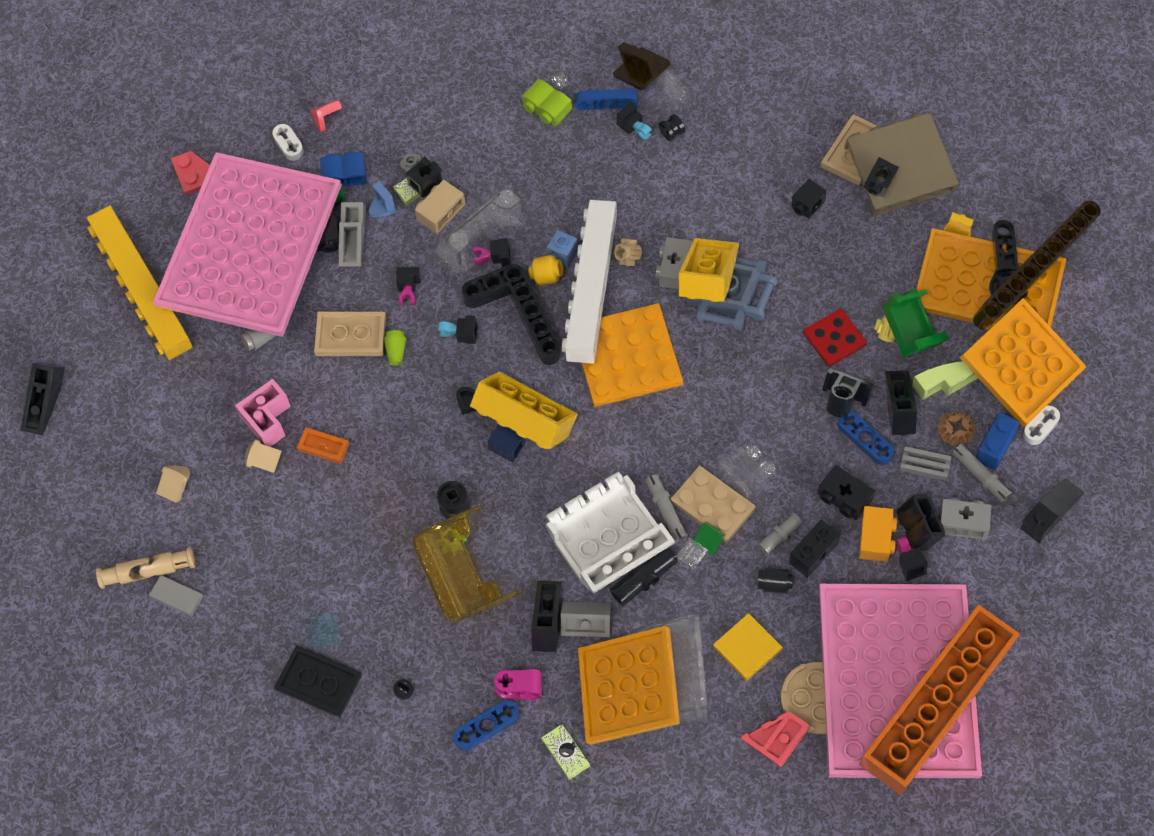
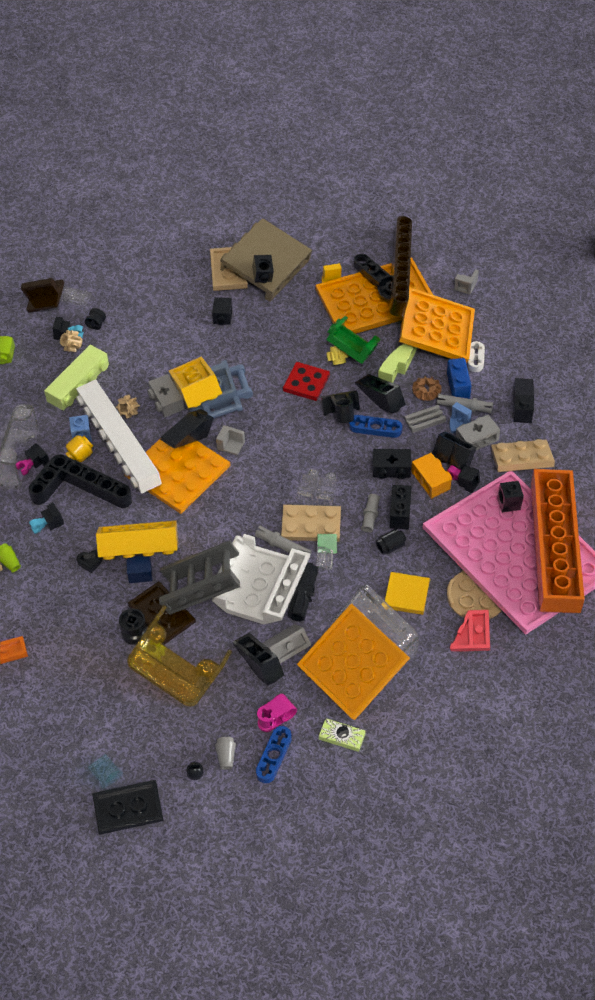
camera: 40 degrees left, 10 degrees down
(443, 691) = (225, 751): none -> light grey cone
(499, 501) = (149, 605): none -> dark brown tile
(547, 511) = (202, 590): none -> dark grey fence
(595, 99) = (26, 331): blue beam -> none
(603, 185) = (80, 372): none -> yellowish green brick
(627, 139) = (71, 341): none -> tan gear
(663, 319) = (189, 429): none -> black slope
(701, 357) = (230, 440): none -> light grey panel
(933, 616) = (510, 496): none -> black brick
(960, 487) = (459, 416): none -> medium blue tile
(993, 576) = (522, 455): none -> tan plate
(1105, 327) = (465, 283): none -> light grey panel

